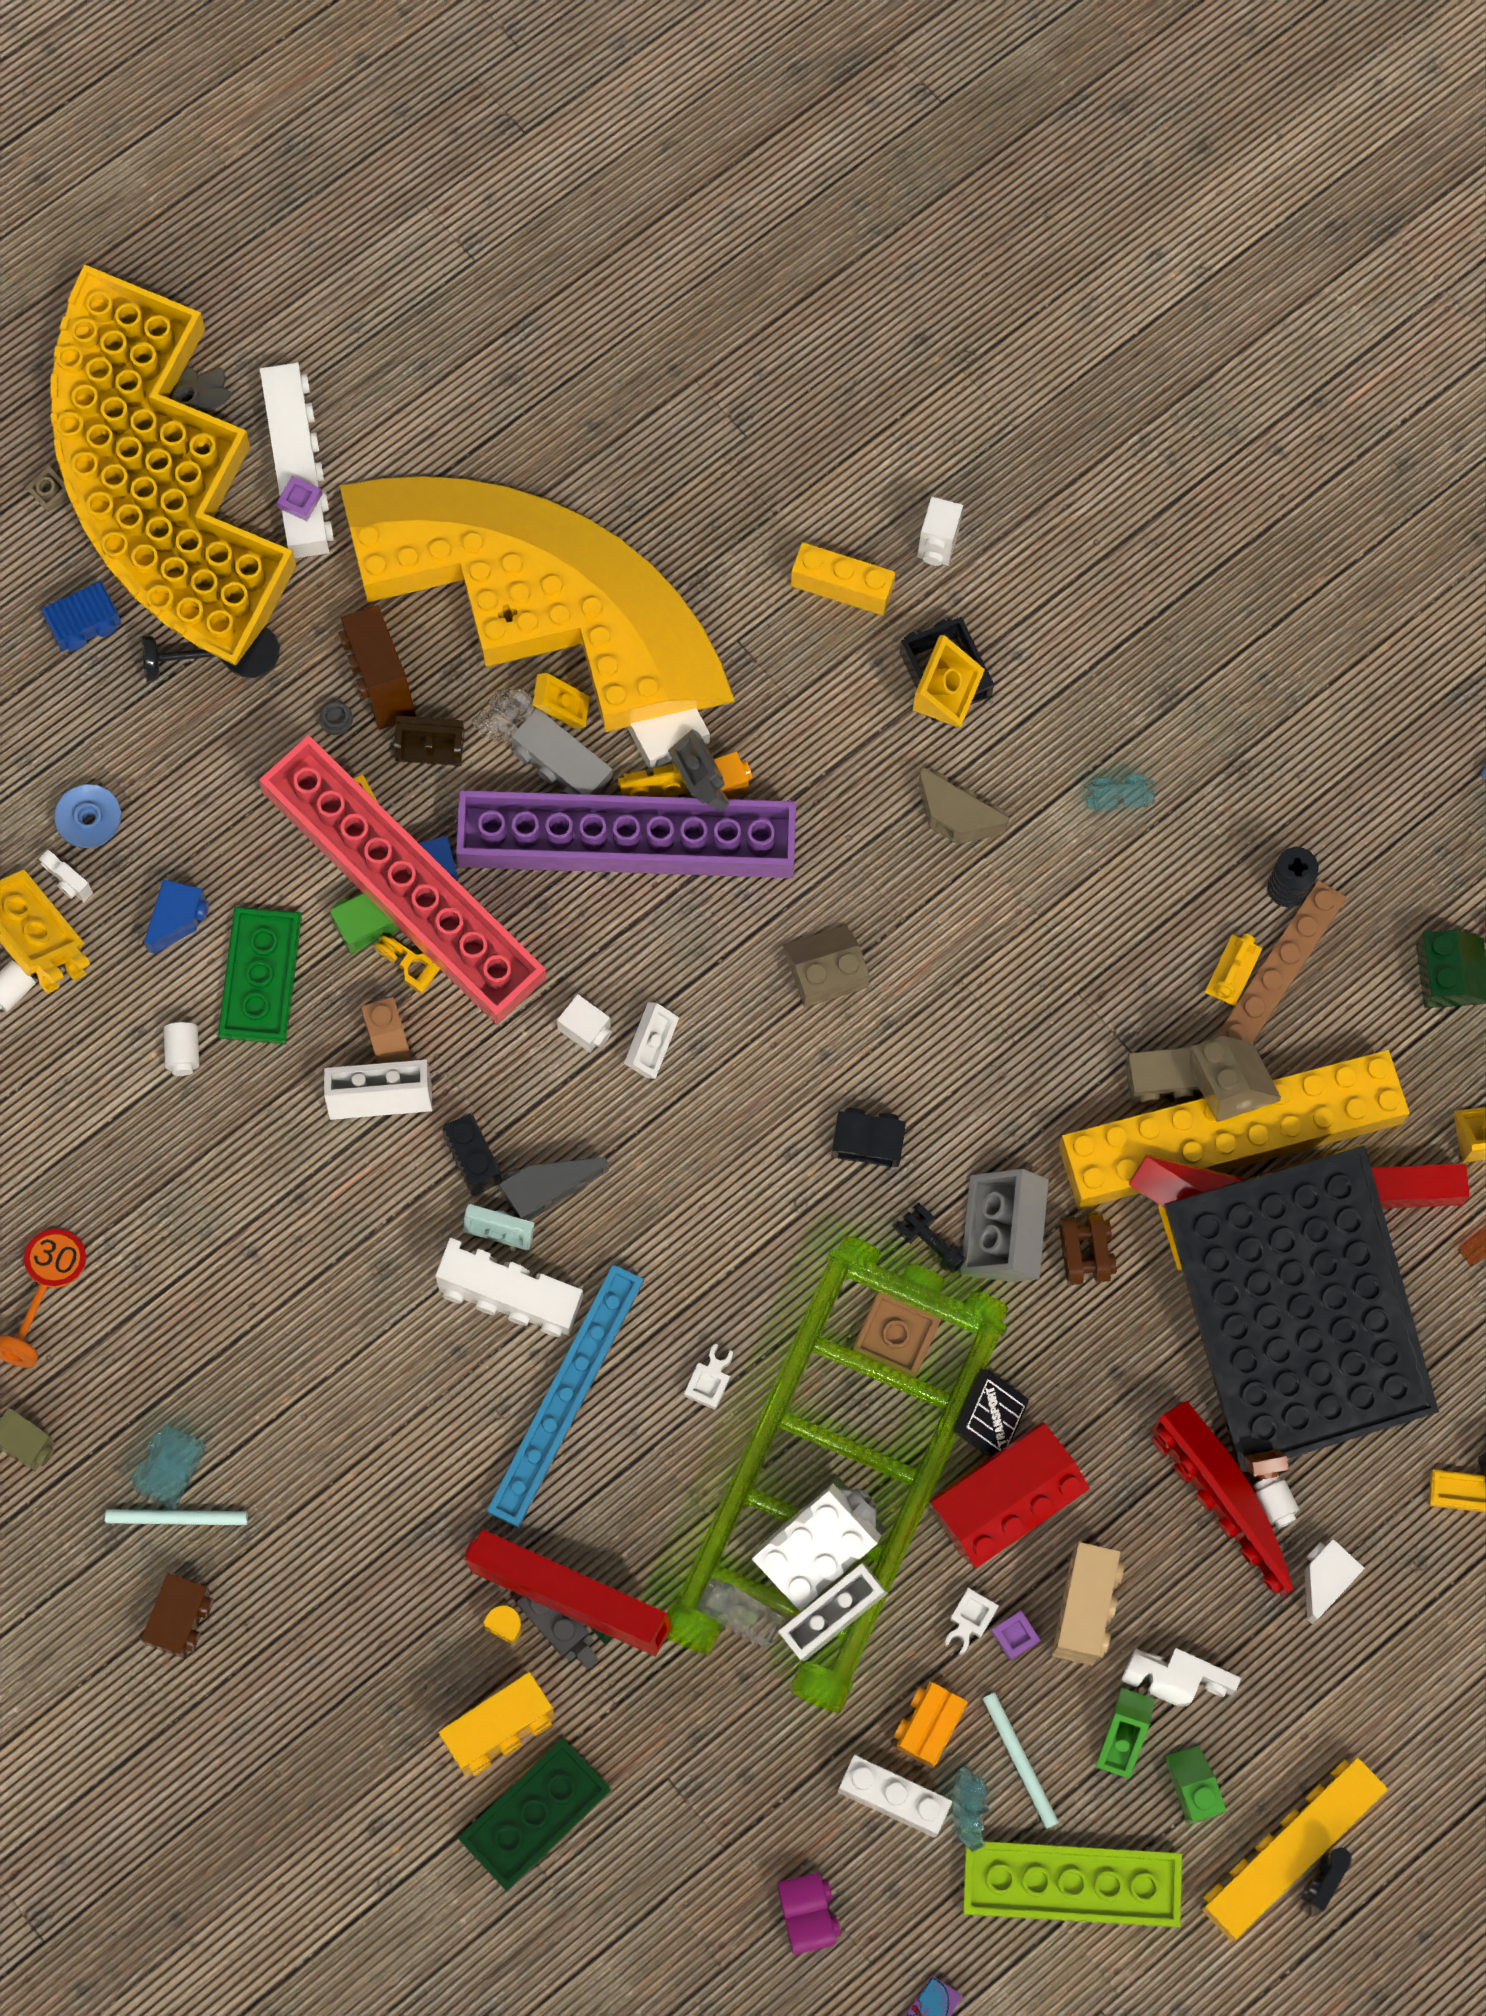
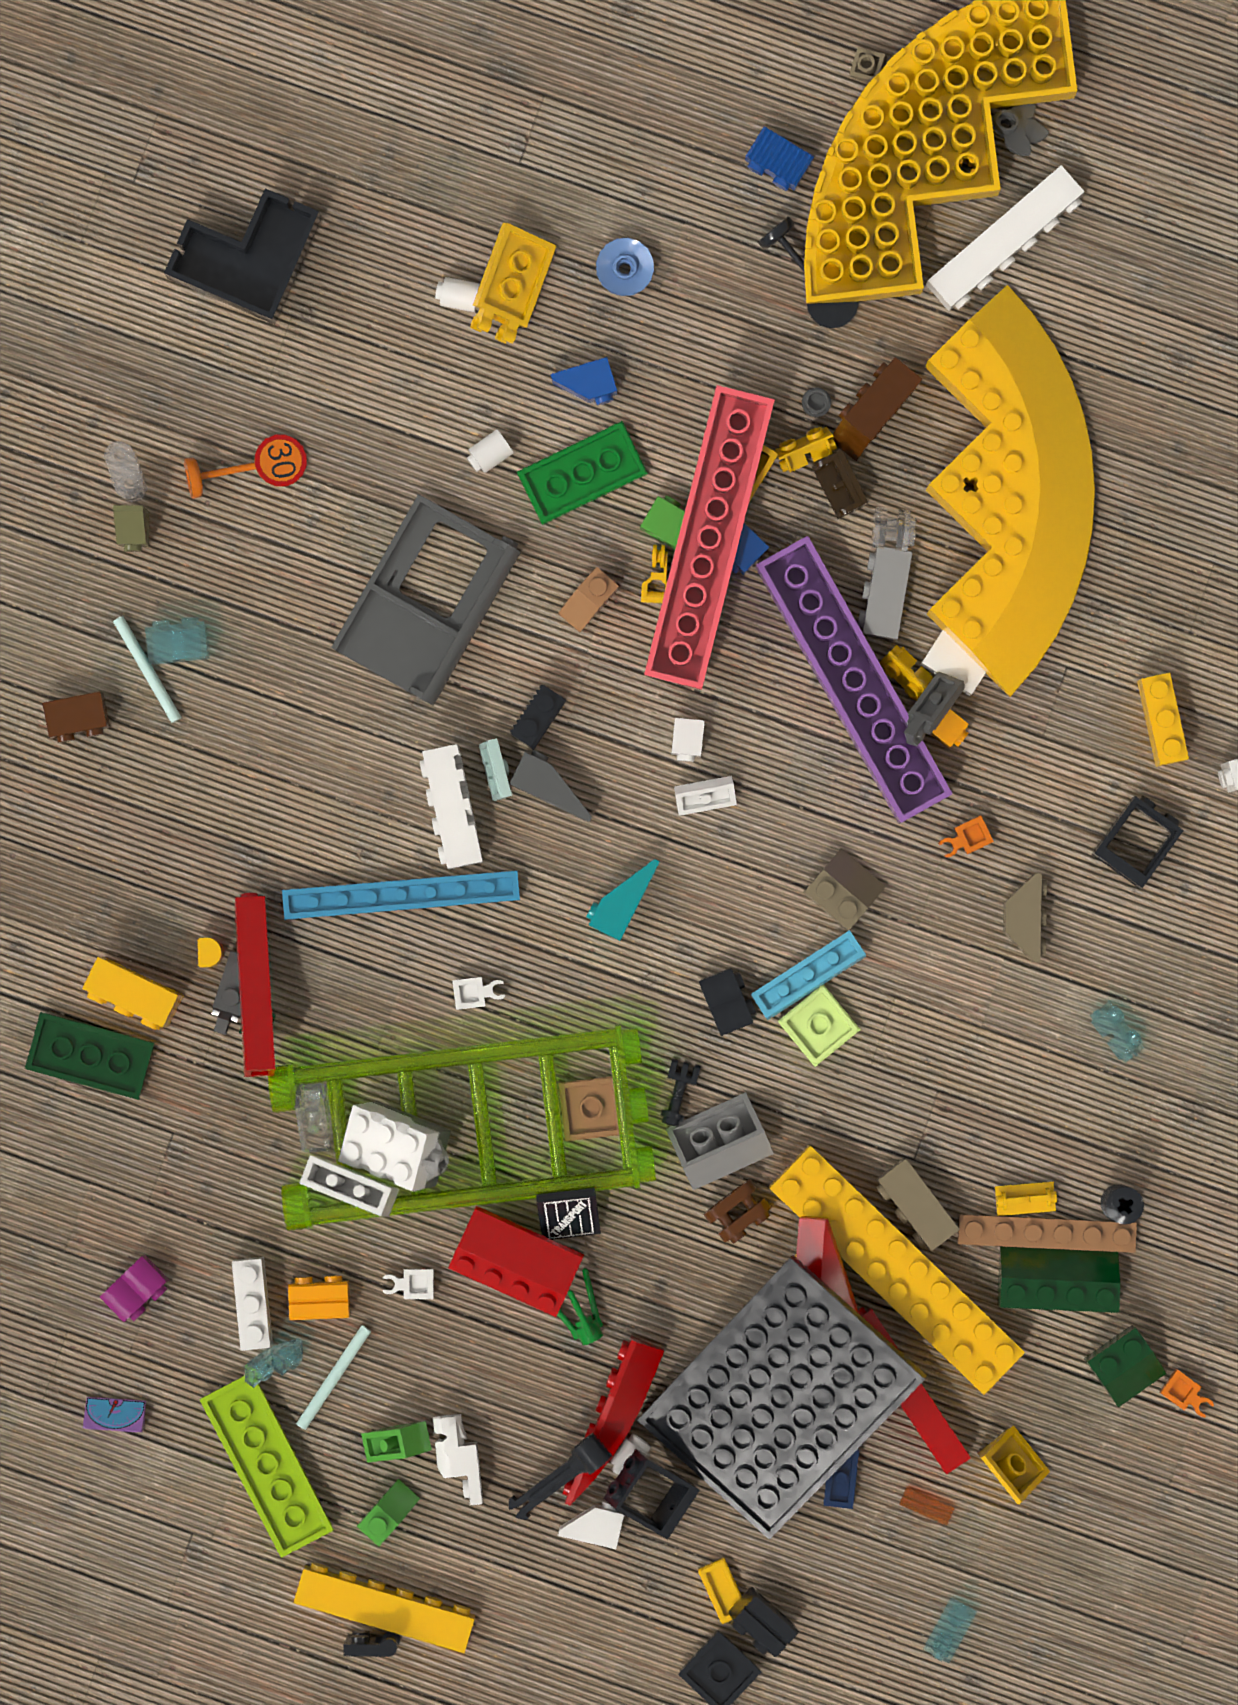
camera: 65 degrees right, 15 degrees up
(69, 881) = (566, 287): white plate -> none
(299, 498) = (969, 266): medium lavender plate -> none
(315, 1238) = (405, 638): none -> dark grey piece
(375, 740) = (794, 451): none -> yellow hinge
(378, 1089) = (543, 618): white brick -> none
(561, 700) = (929, 566): yellow plate -> none
(712, 1190) = (619, 905): none -> teal slope
(846, 817) = (970, 836): none -> orange plate
(889, 1045) = (808, 975): none -> medium azure plate
(945, 1066) = (818, 1025): none -> yellowish green tile
(948, 683) = (1117, 855): yellow slope -> none
(1015, 1635) = (419, 1323): medium lavender plate -> none
(1088, 1604) = (469, 1363): tan brick -> none
(1118, 1466) = (586, 1328): none -> green plant
(1231, 1077) = (929, 1249): dark tan slope -> none
(1254, 1532) = (585, 1457): none -> black piece
(1266, 1464) = (651, 1435): plate -> none
(1332, 983) = (1059, 1279): none -> dark green slope
(1342, 1473) = (672, 1506): none -> black window
(1426, 1310) = (841, 1485): none -> dark blue plate

